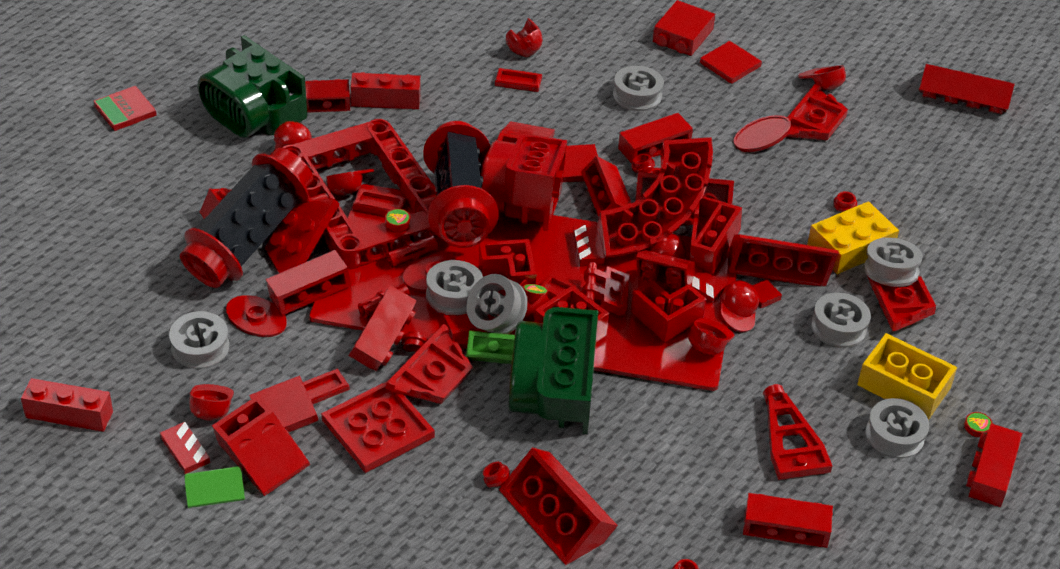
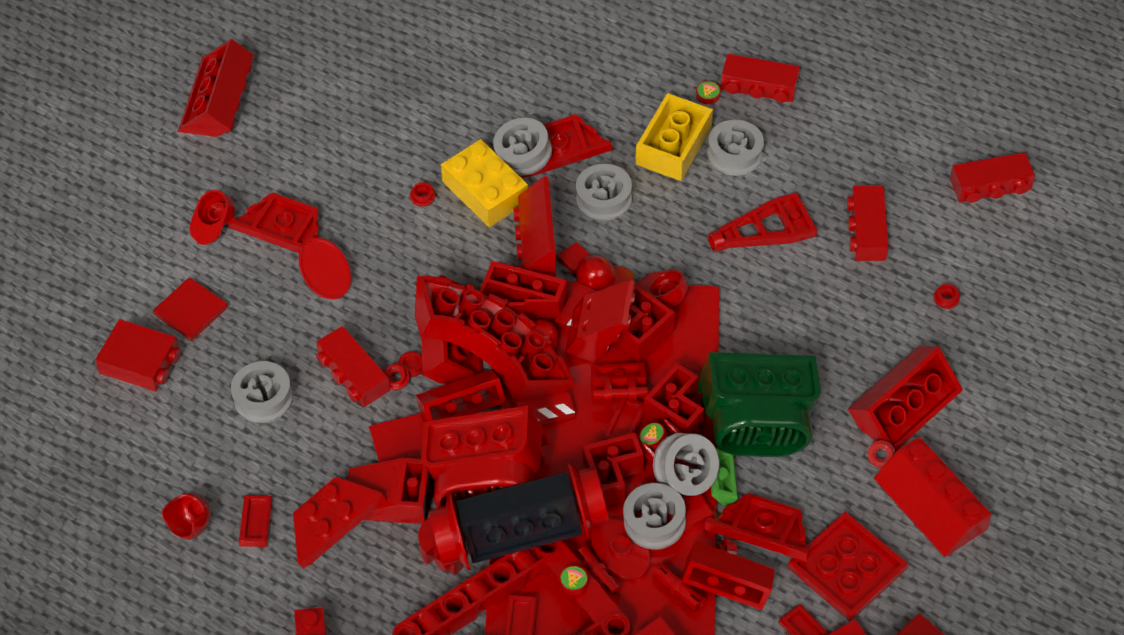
camera: 95 degrees left, 10 degrees up
(437, 506) = (933, 497): none -> red slope
(506, 110) = (331, 516): none -> red wing

